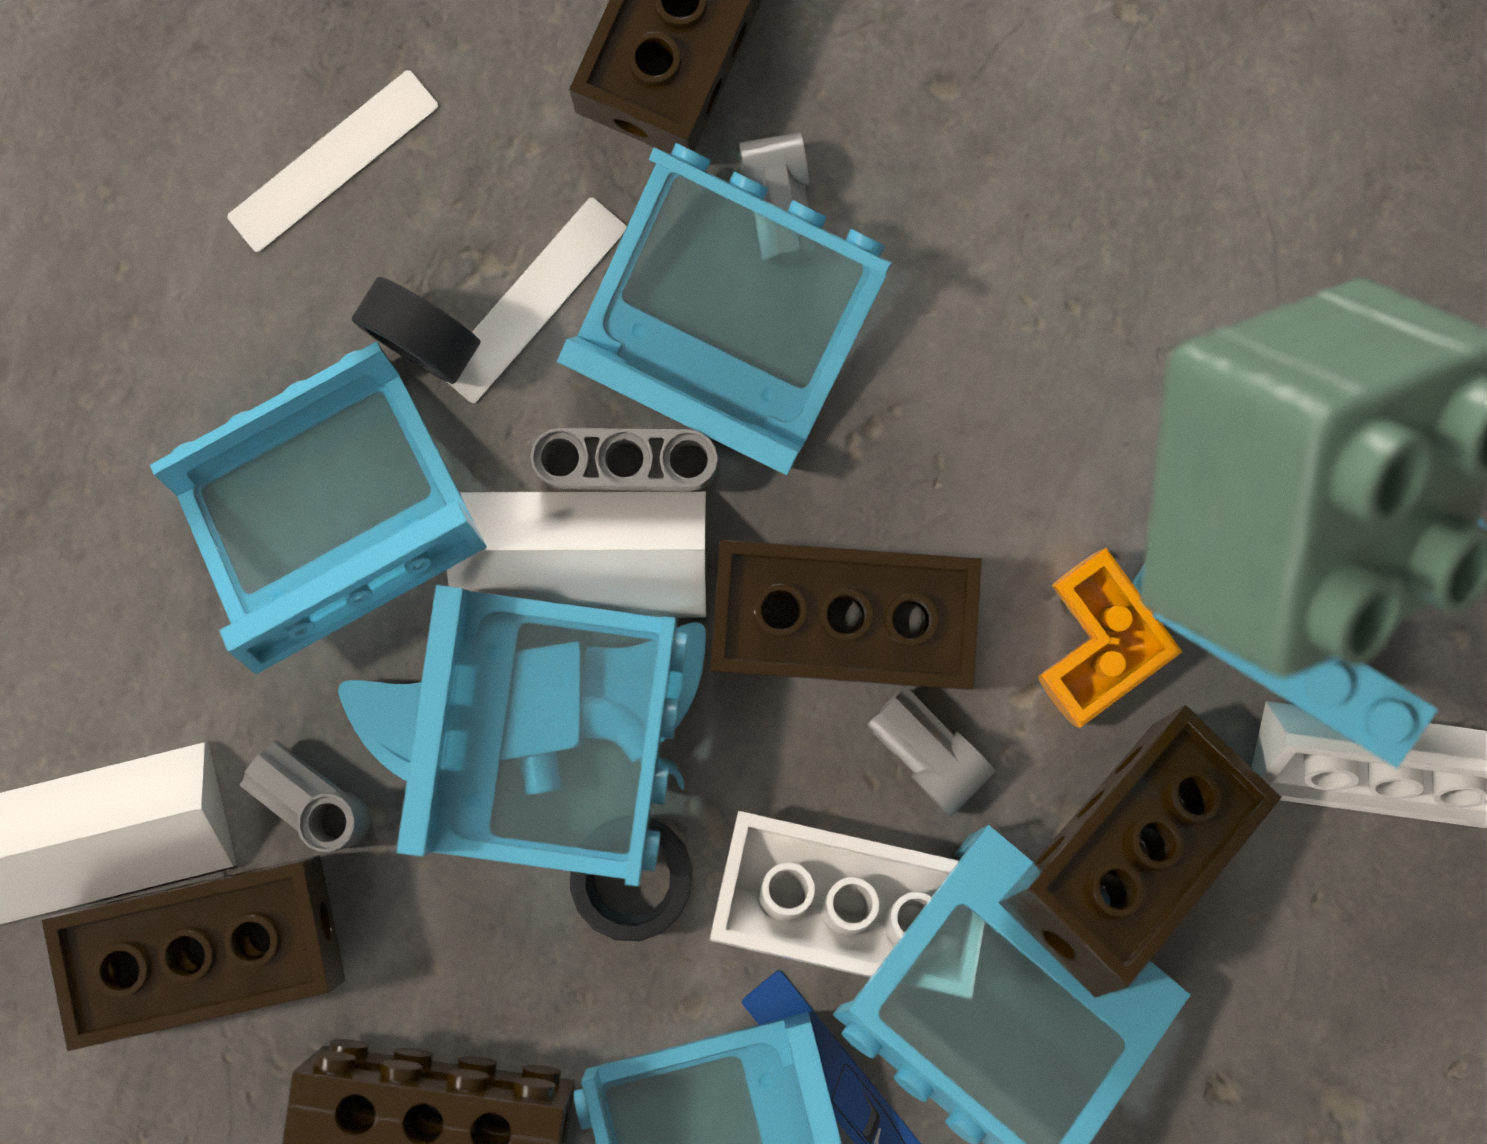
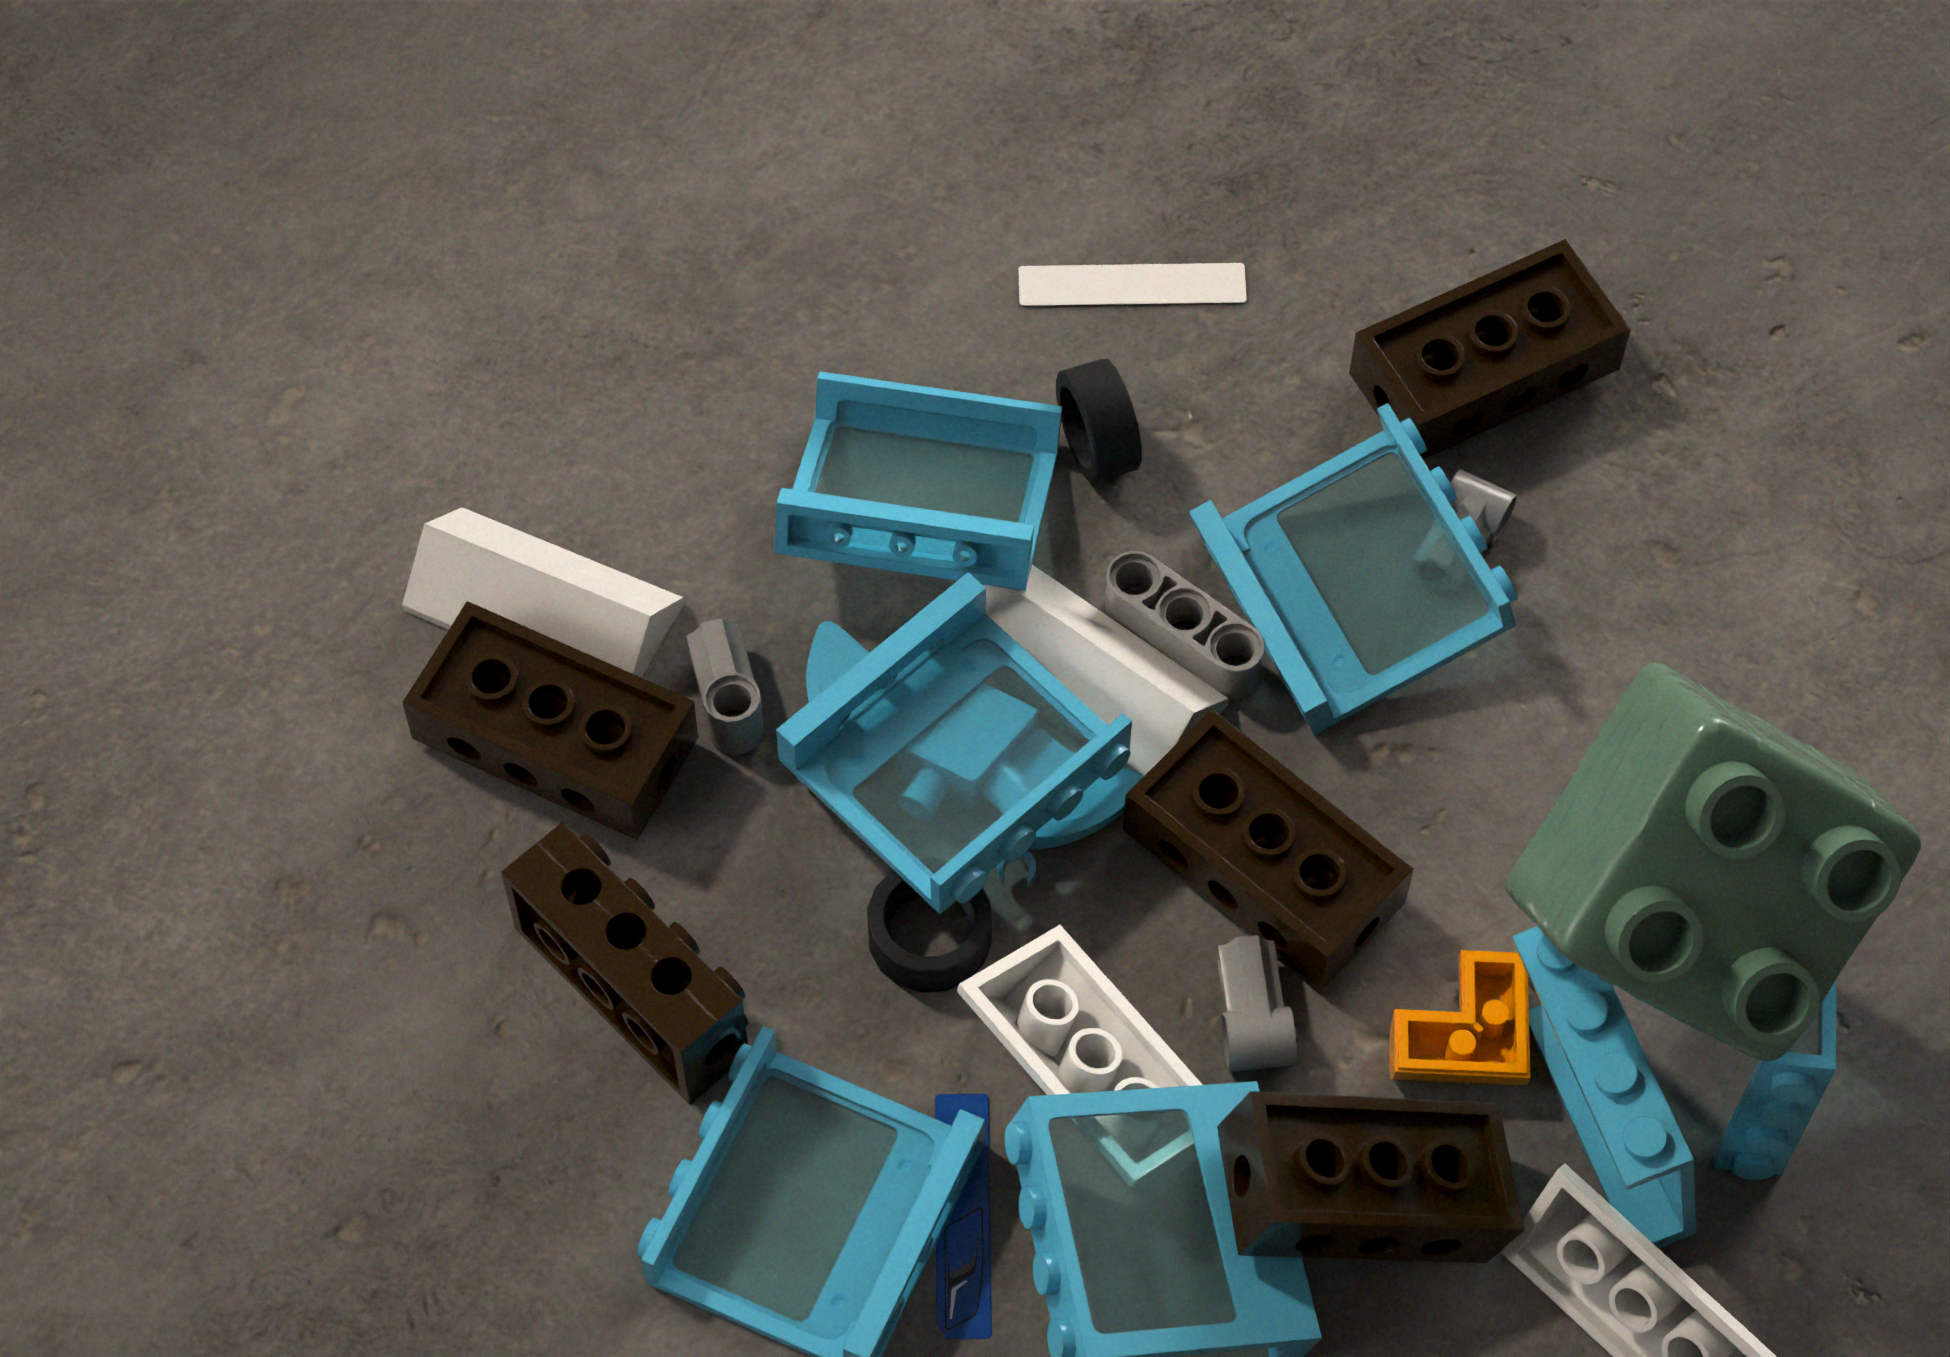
camera: 40 degrees right, 25 degrees down
(538, 295) = (1204, 478): white sticker -> none

